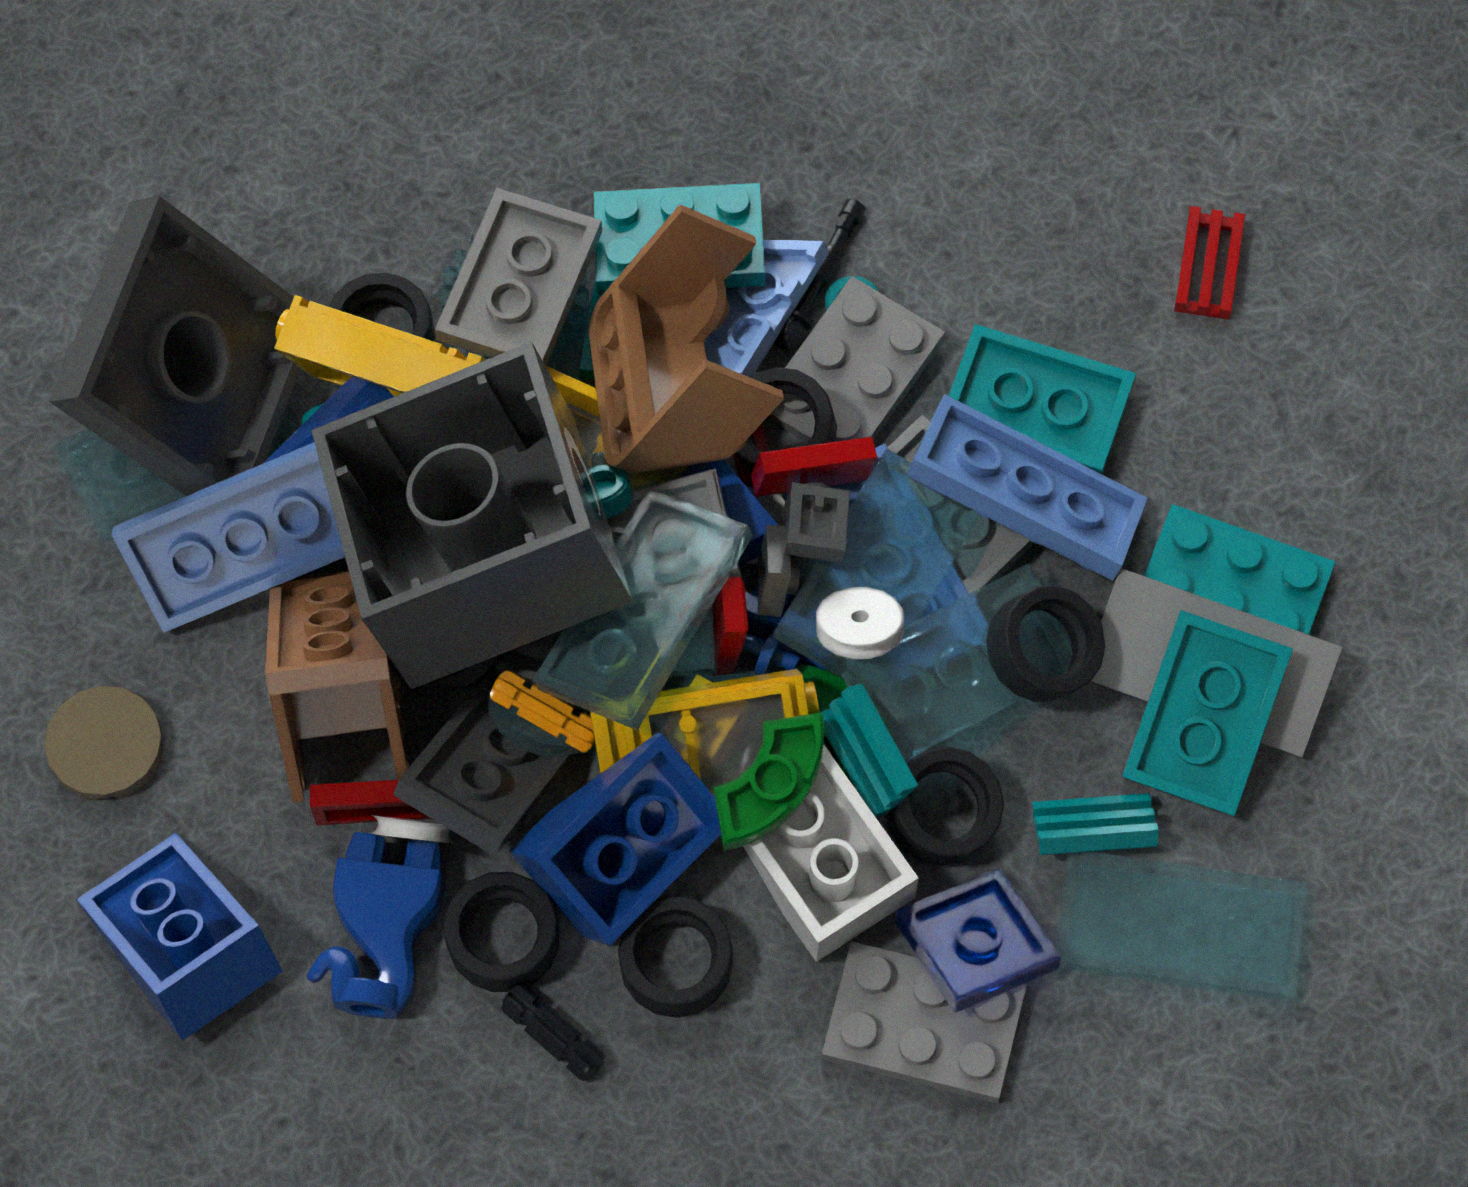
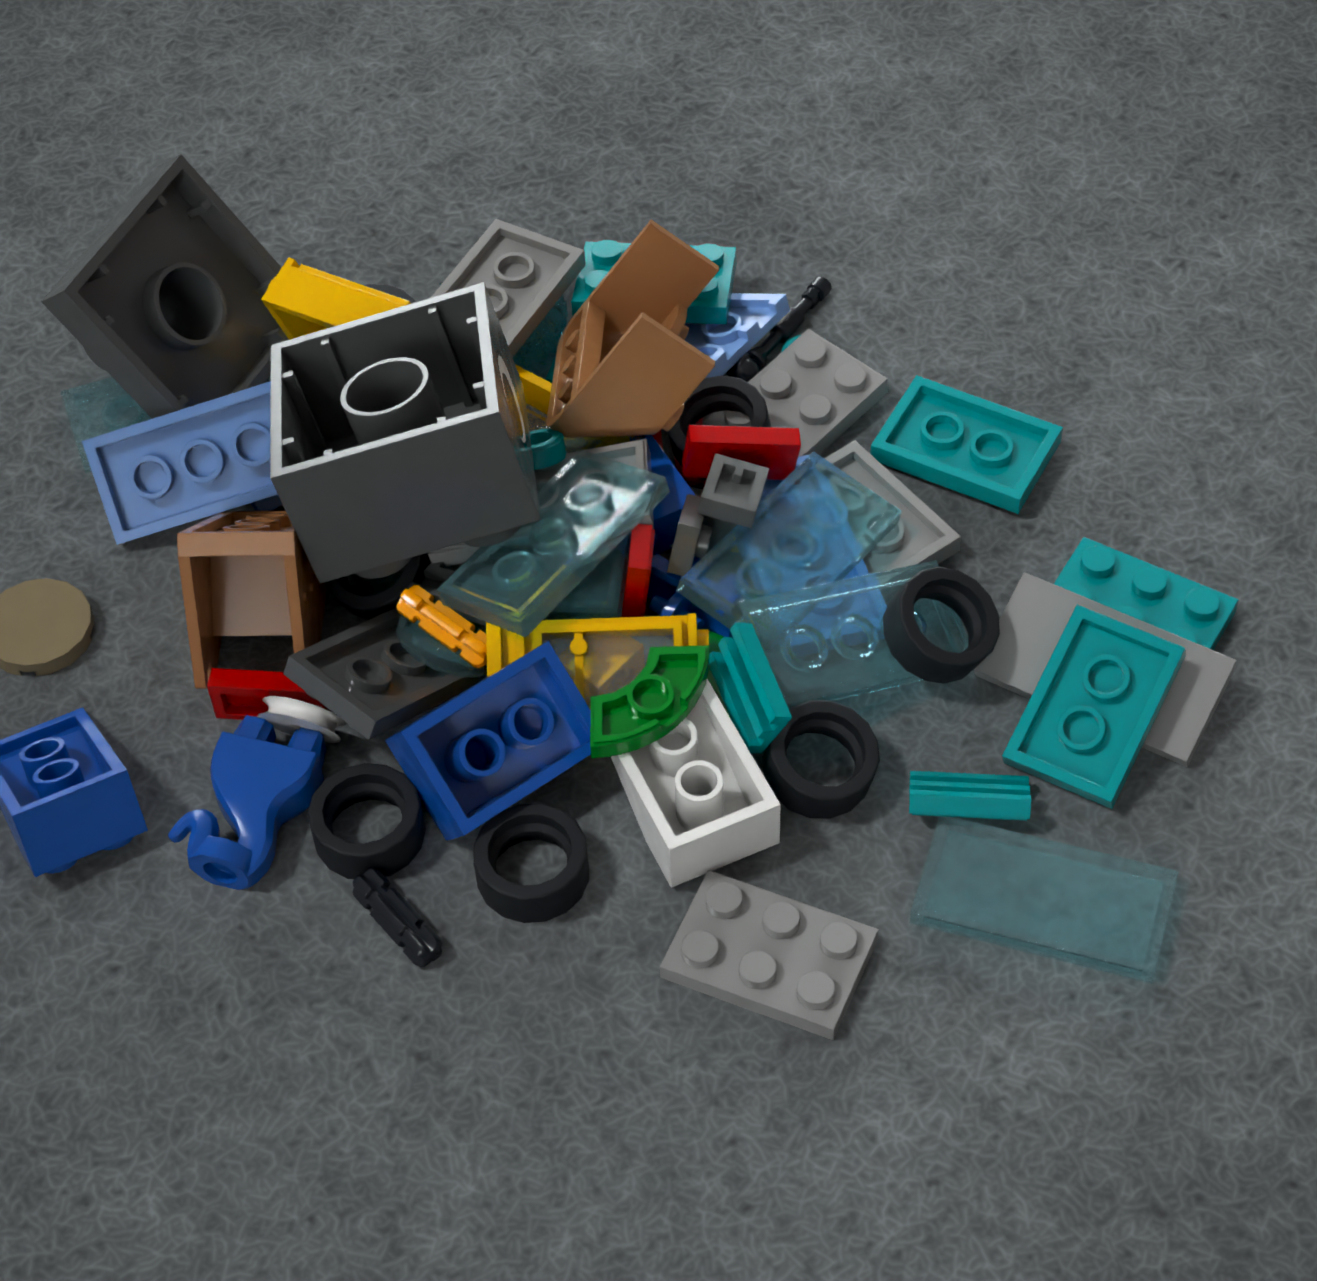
camera: 10 degrees right, 15 degrees down
(859, 623) = (760, 577): white piece -> none
(977, 940) = (834, 881): clear blue tile -> none
(1027, 487) = (943, 500): medium blue plate -> none
(1215, 223) = (1152, 328): red tile -> none

